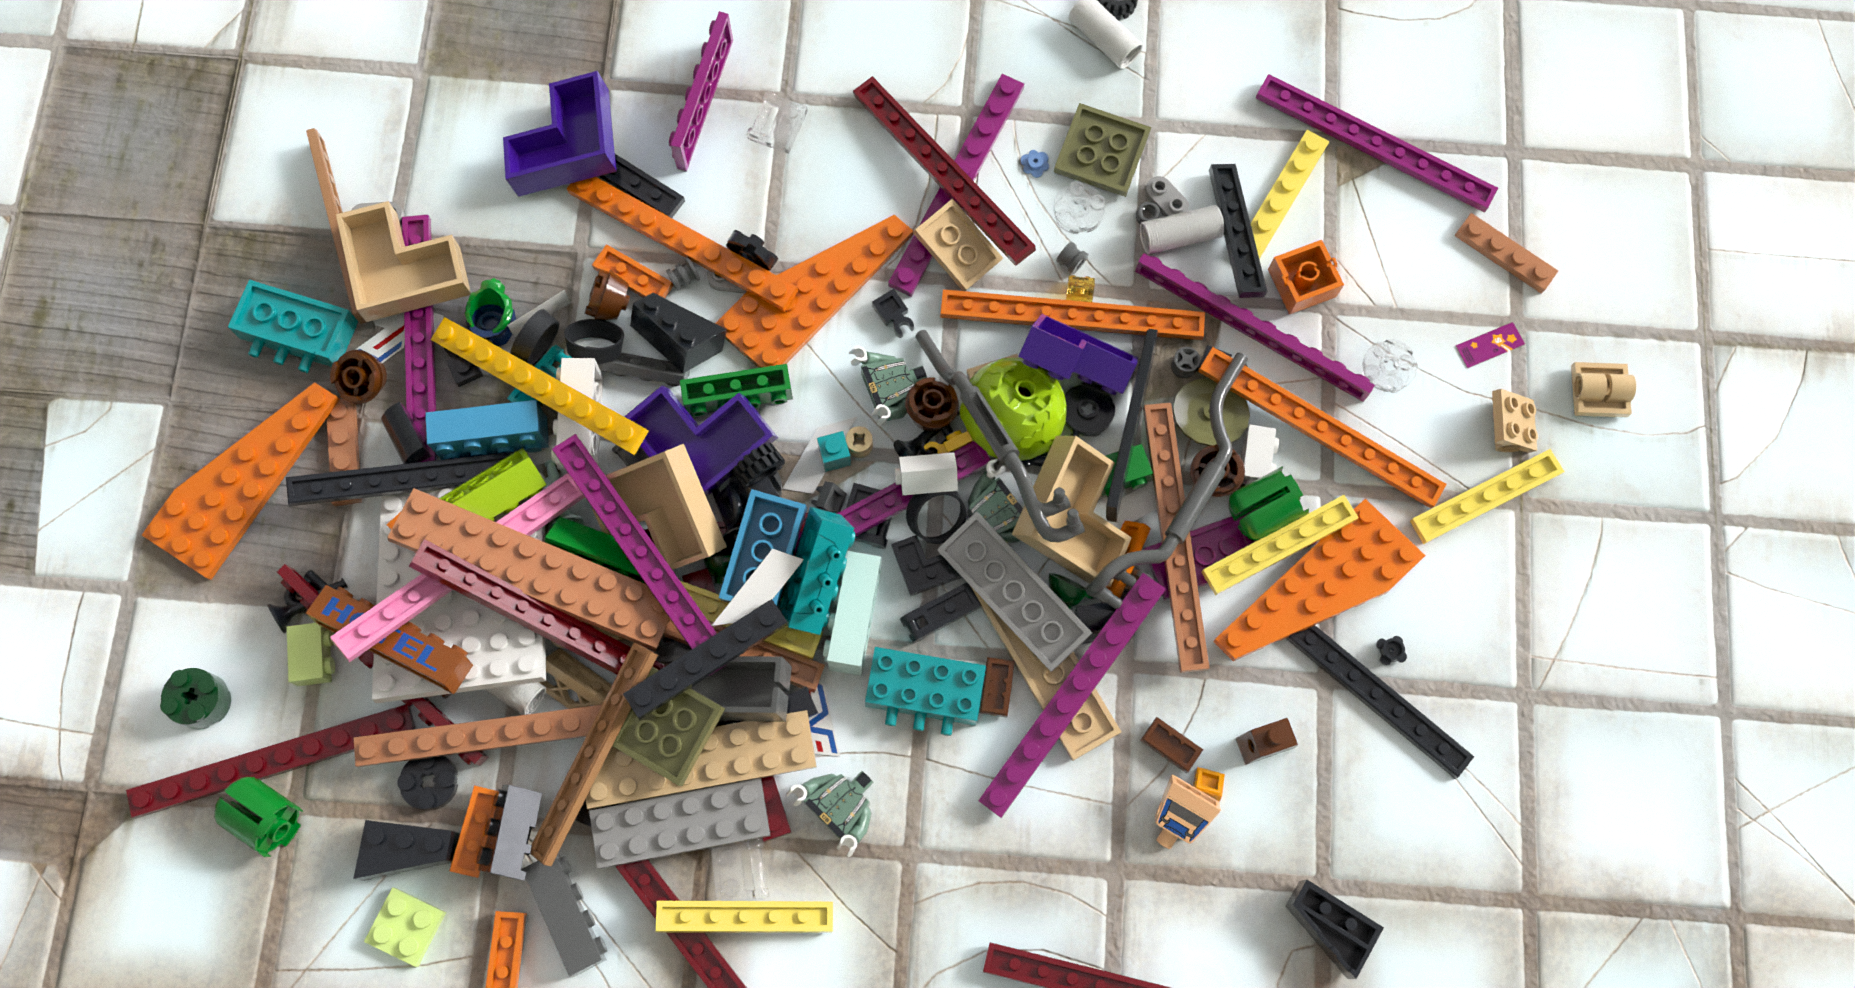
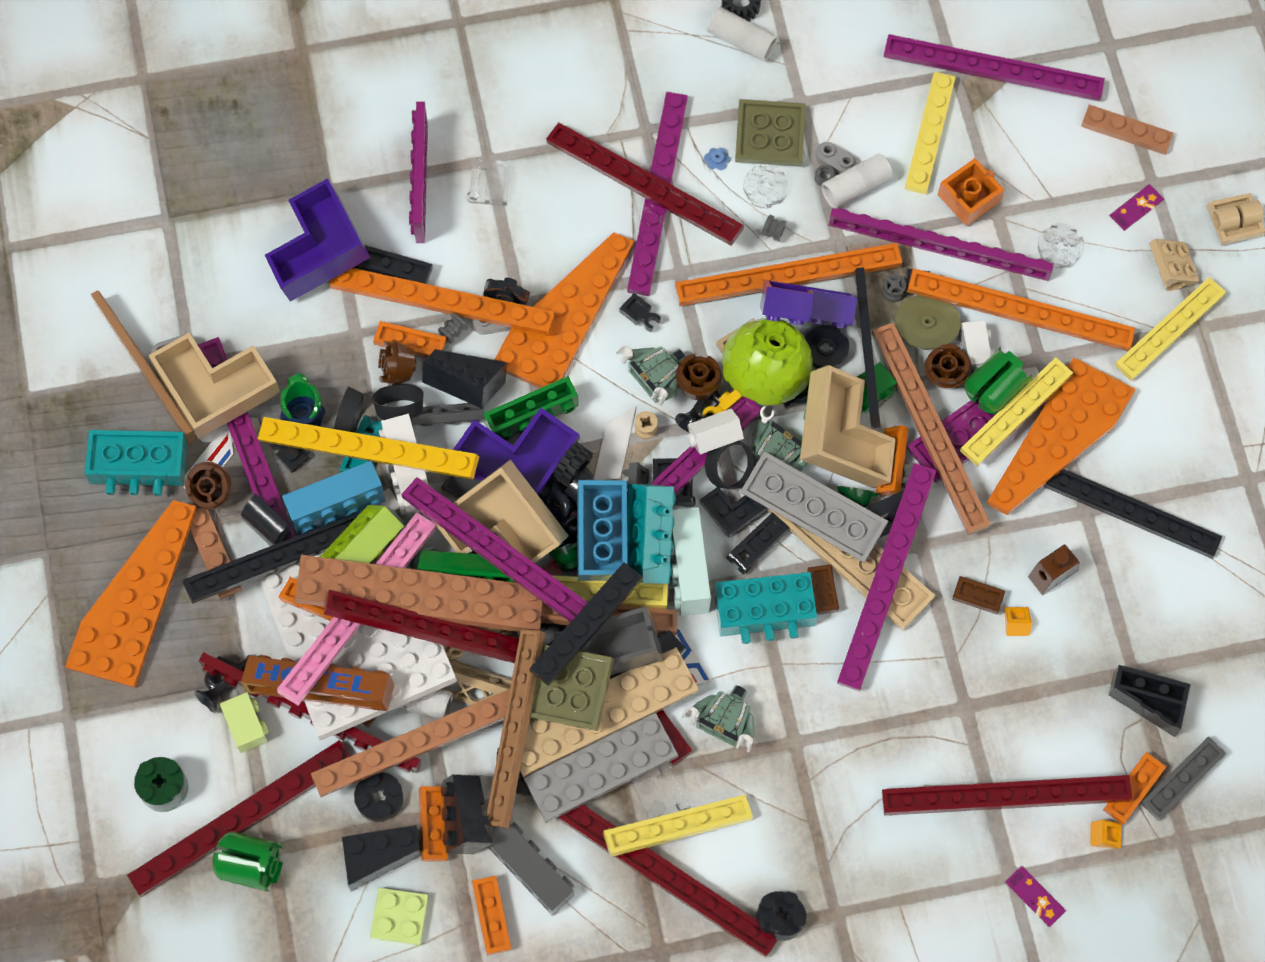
camera: 15 degrees left, 5 degrees down
(551, 306) = (337, 398): white sticker -> none
(761, 586) = (611, 555): white sticker -> none
(834, 451) = (628, 437): teal brick -> none
(958, 245) = (676, 242): tan plate -> none
(1005, 450) = (774, 389): dark grey piece -> none
(1080, 288) = (788, 251): clear yellow tile -> none
(1183, 812) = (1005, 643): light nougat torso -> none
(1192, 505) = (936, 401): dark grey piece -> none
(1238, 231) = (904, 169): black plate -> none
(1397, 645) = (1132, 465): black plate -> none

